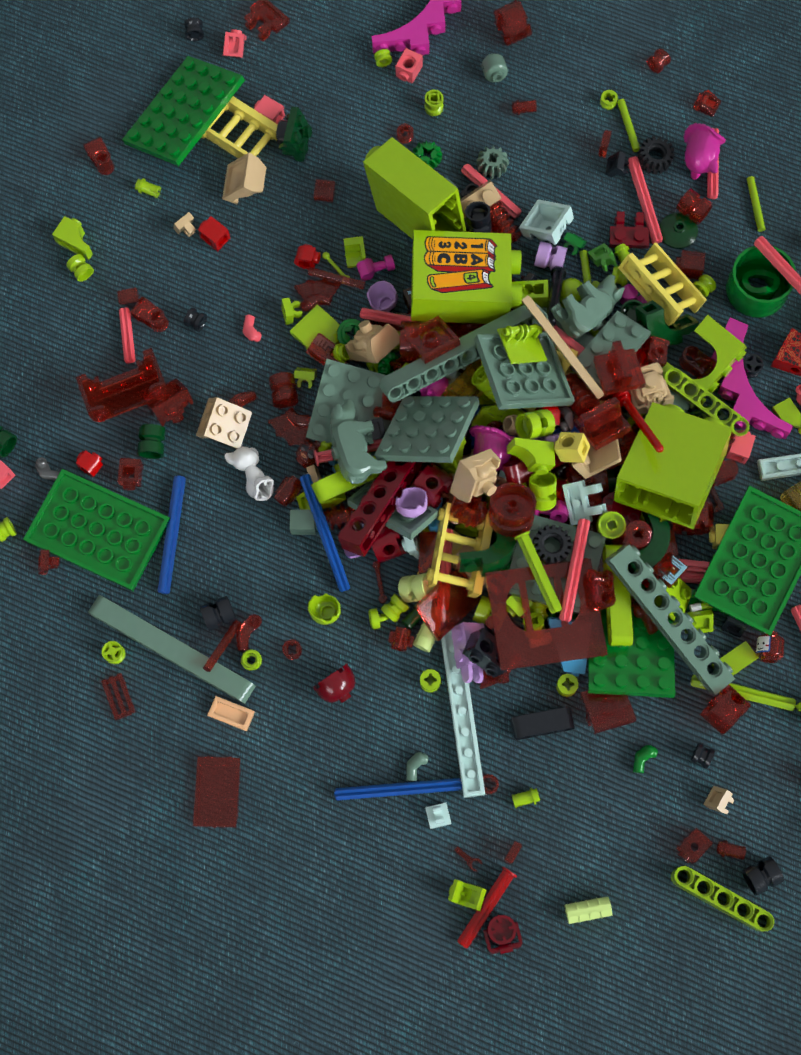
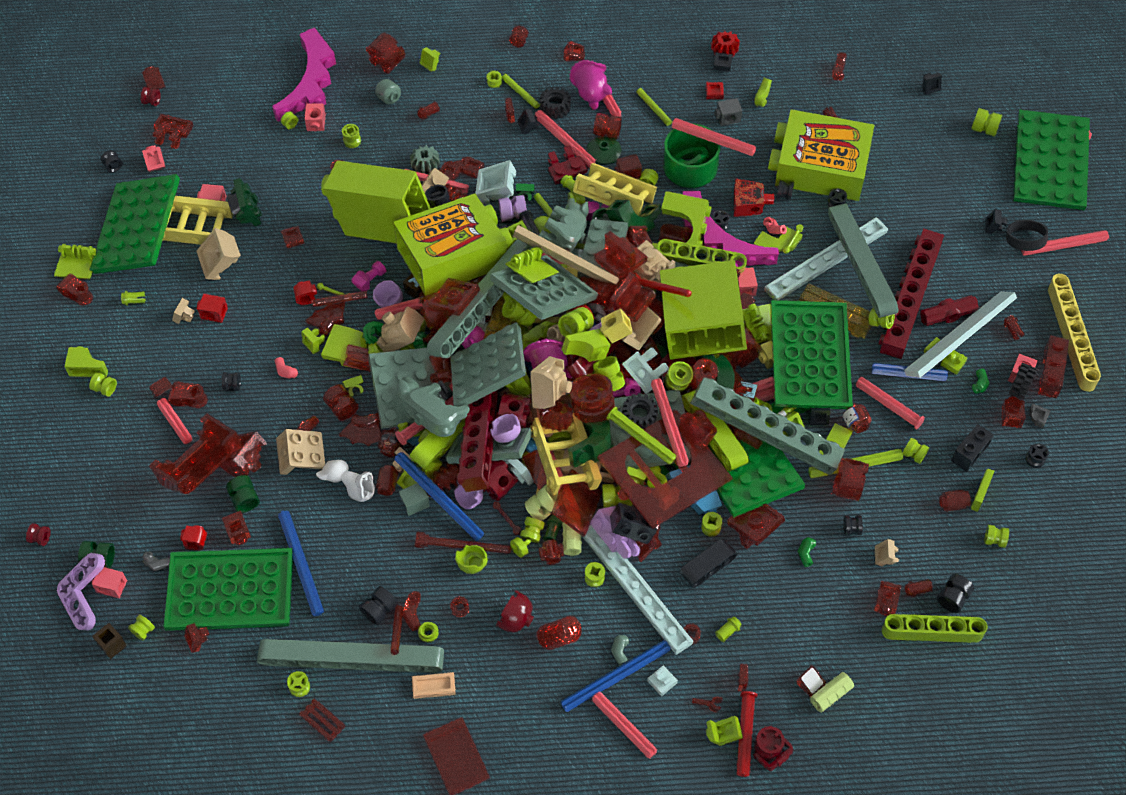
camera: 30 degrees left, 15 degrees down
(113, 124) = (75, 261): none -> lime hinge
(291, 567) = (424, 540): none -> clear red piece
(354, 251) = (343, 271): lime panel -> none
(364, 725) = (559, 632): none -> clear red piece
(380, 840) = (624, 724): none -> coral axle
(514, 184) = (467, 166): none -> clear red tile
(555, 48) = (429, 59): none -> lime tile
(575, 889) = (811, 681): none -> slope
(602, 256) = (555, 190): bright green plate -> none
(727, 497) = (758, 321): none -> lime hinge

